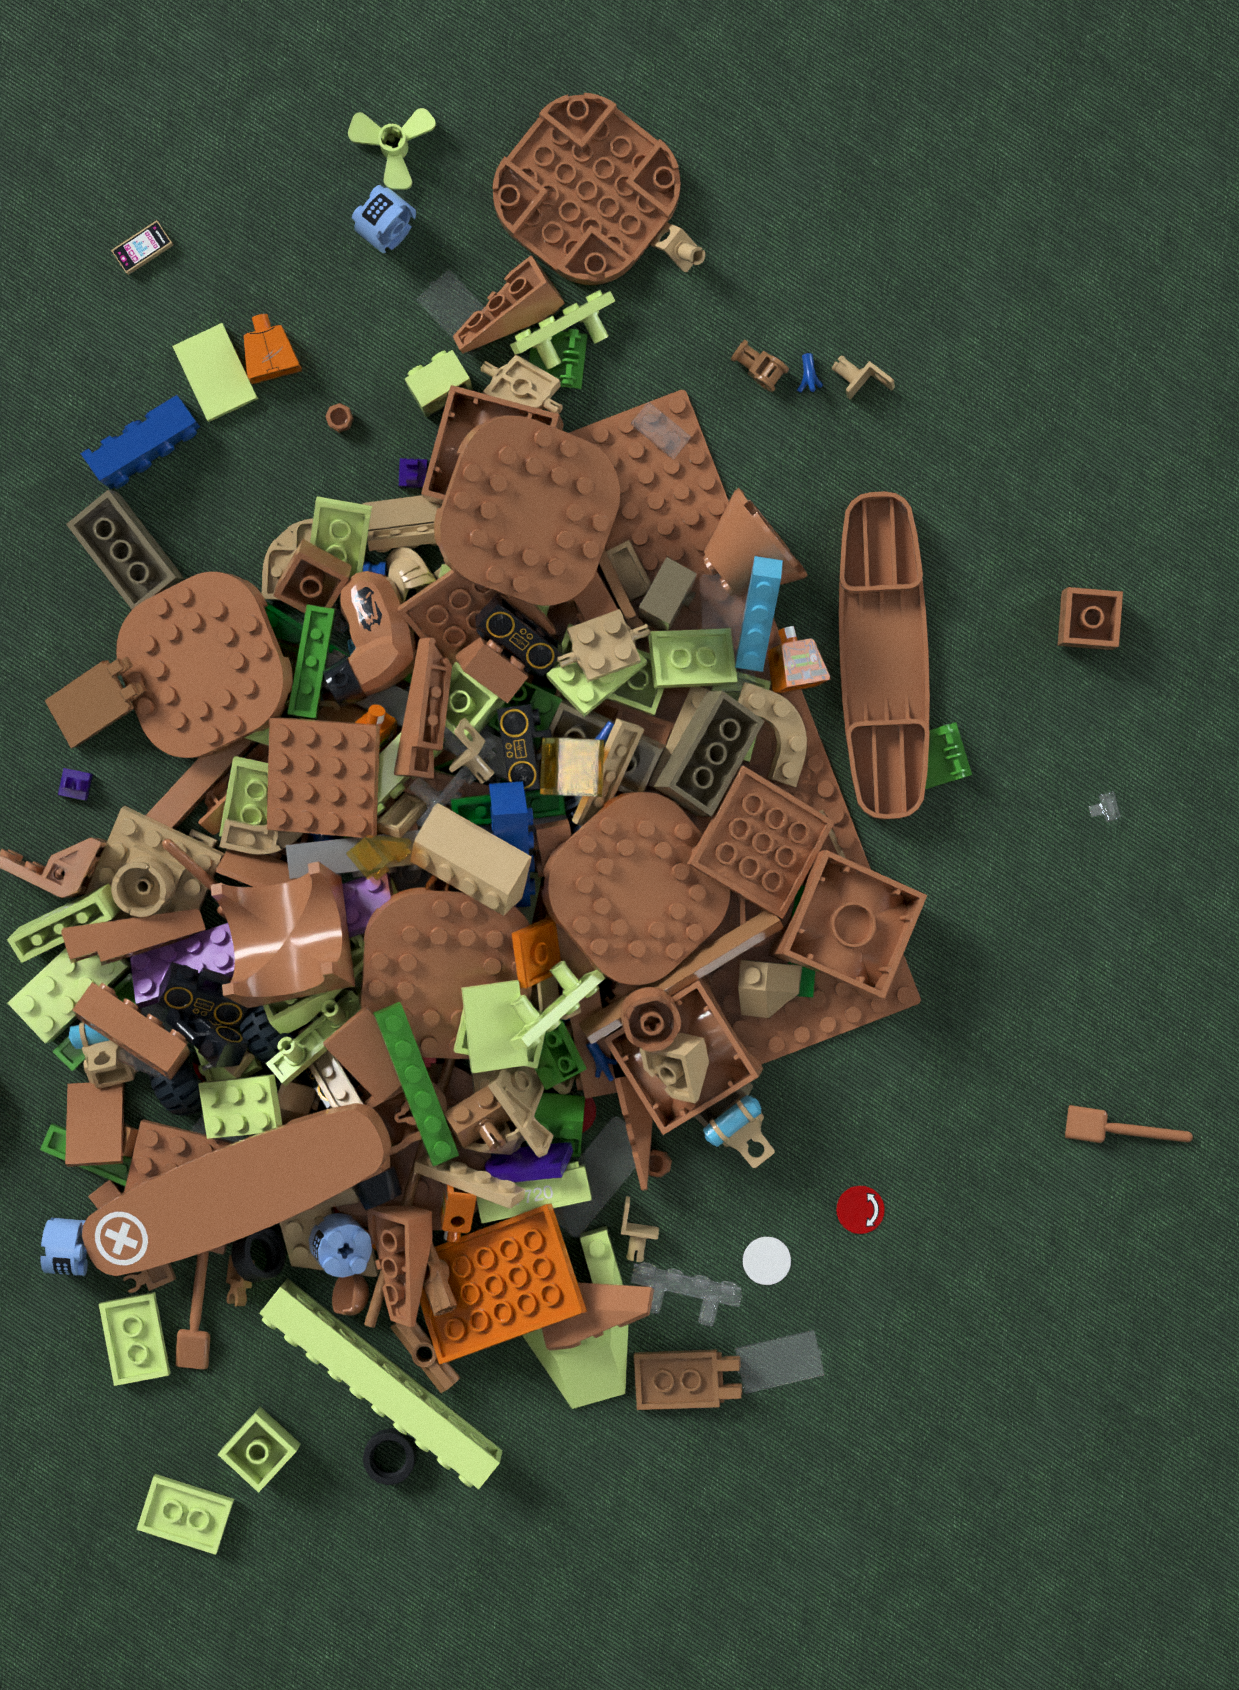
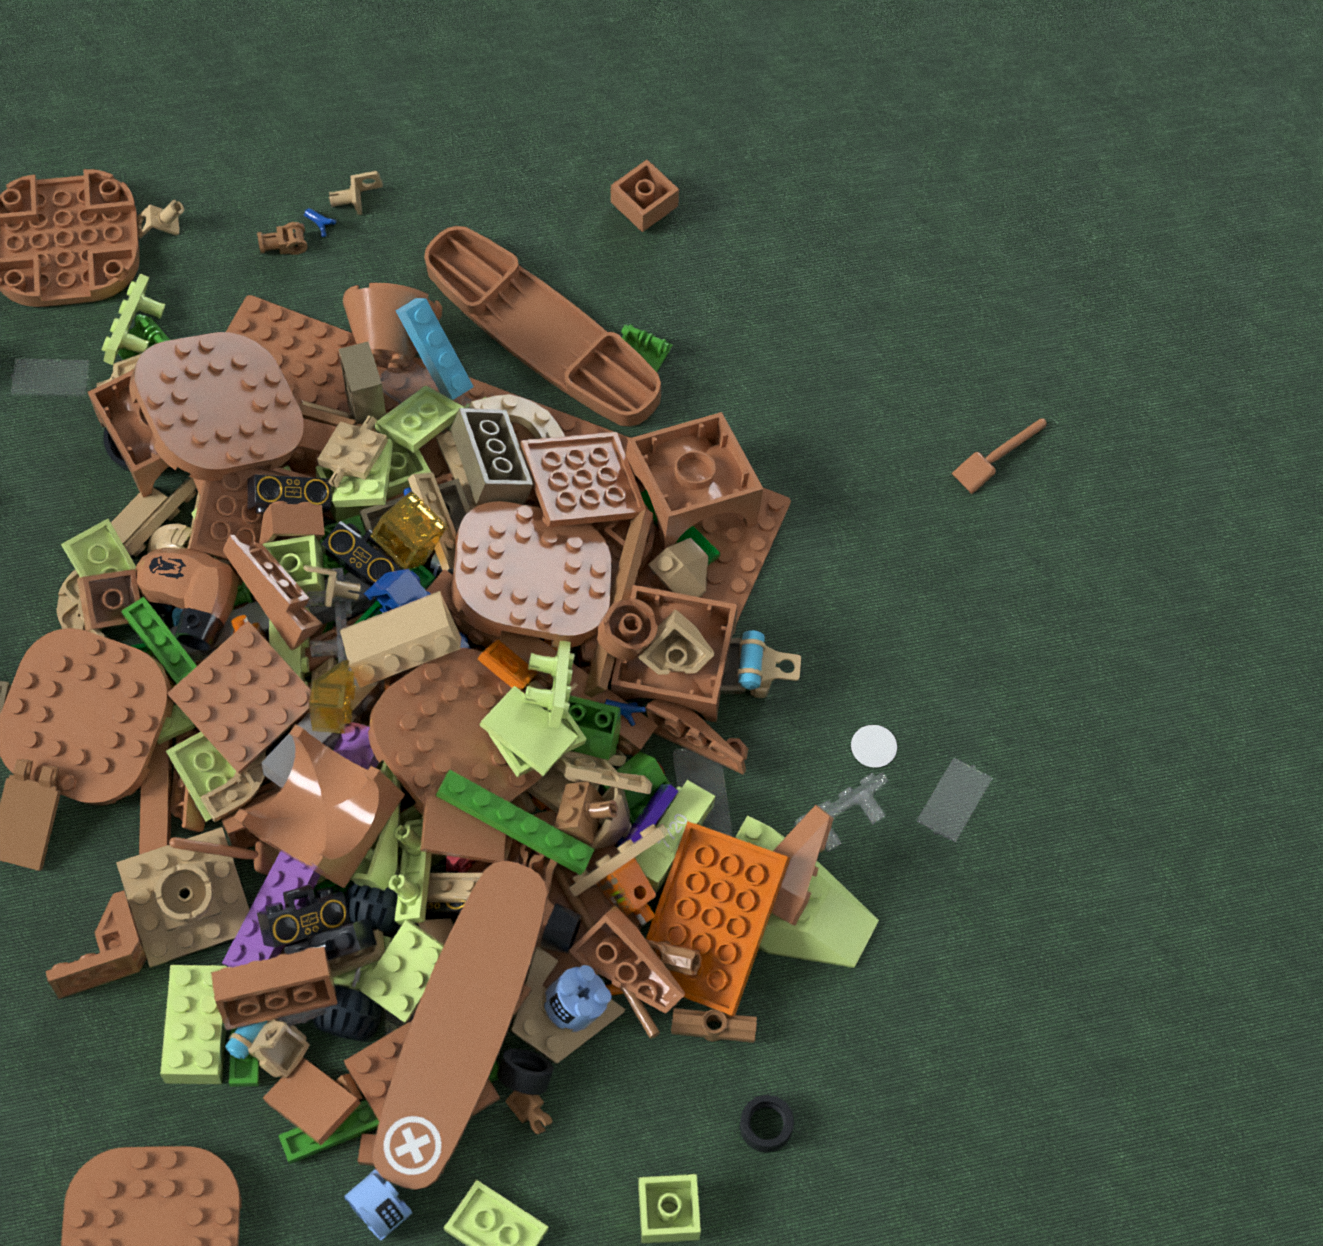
camera: 50 degrees left, 25 degrees down
(45, 931) = (150, 978): yellowish green brick -> none
(75, 784) = (65, 893): dark purple tile -> none
(130, 936) = (208, 936): nougat wedge -> none
(152, 1277) = (462, 1167): medium nougat plate -> none
(194, 1345) = (542, 1189): nougat piece -> none
(339, 417) = (28, 501): nougat tile -> none
(350, 1295) = (619, 1037): nougat hair -> none
(382, 1384) = (705, 1071): yellowish green brick -> none
(412, 472) = (114, 491): dark purple tile -> none
(432, 383) = (75, 419): yellowish green brick -> none
(519, 304) = (84, 328): nougat wedge -> none
(638, 1235) = (771, 806): tan bracket -> none
(661, 430) = (258, 322): clear plate -> none
(684, 1379) = (905, 870): medium nougat tile -> none
(795, 663) = (492, 374): orange torso -> none
(860, 1209) = (896, 657): red sticker -> none
(1107, 807) = (774, 287): clear tile -> none

